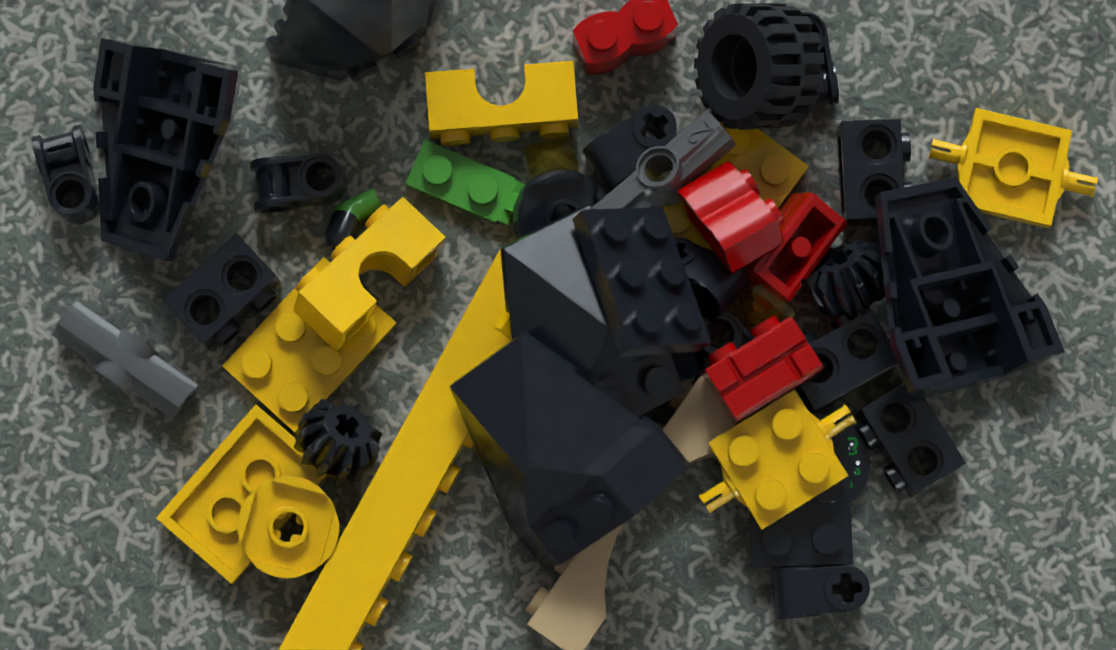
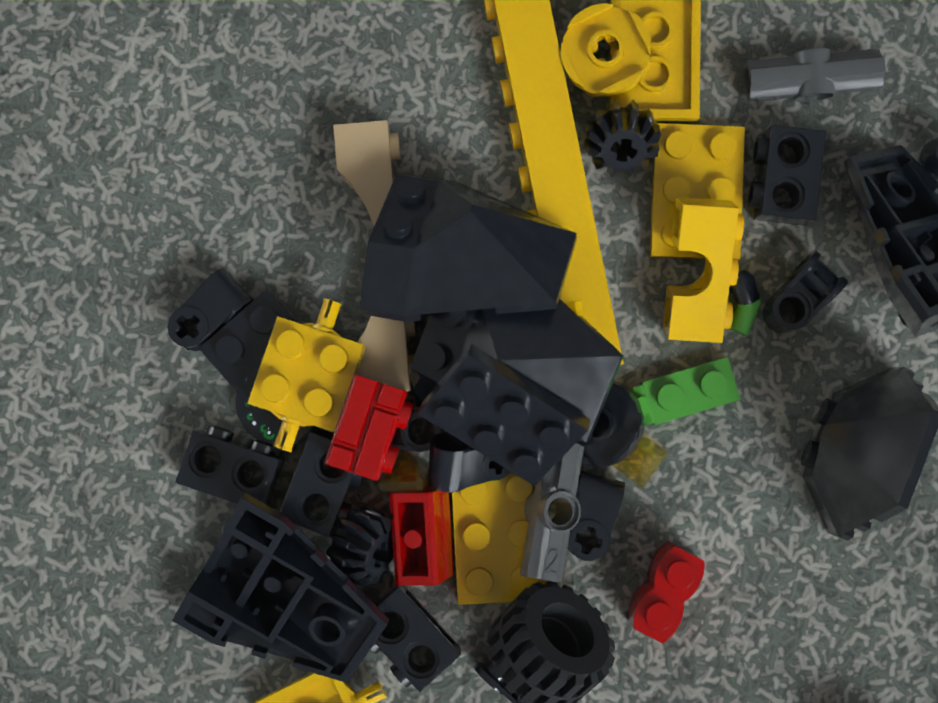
camera: 145 degrees right, 5 degrees up
(544, 106) = (679, 493): yellow arch -> none
(731, 215) = (479, 520): red brick -> none

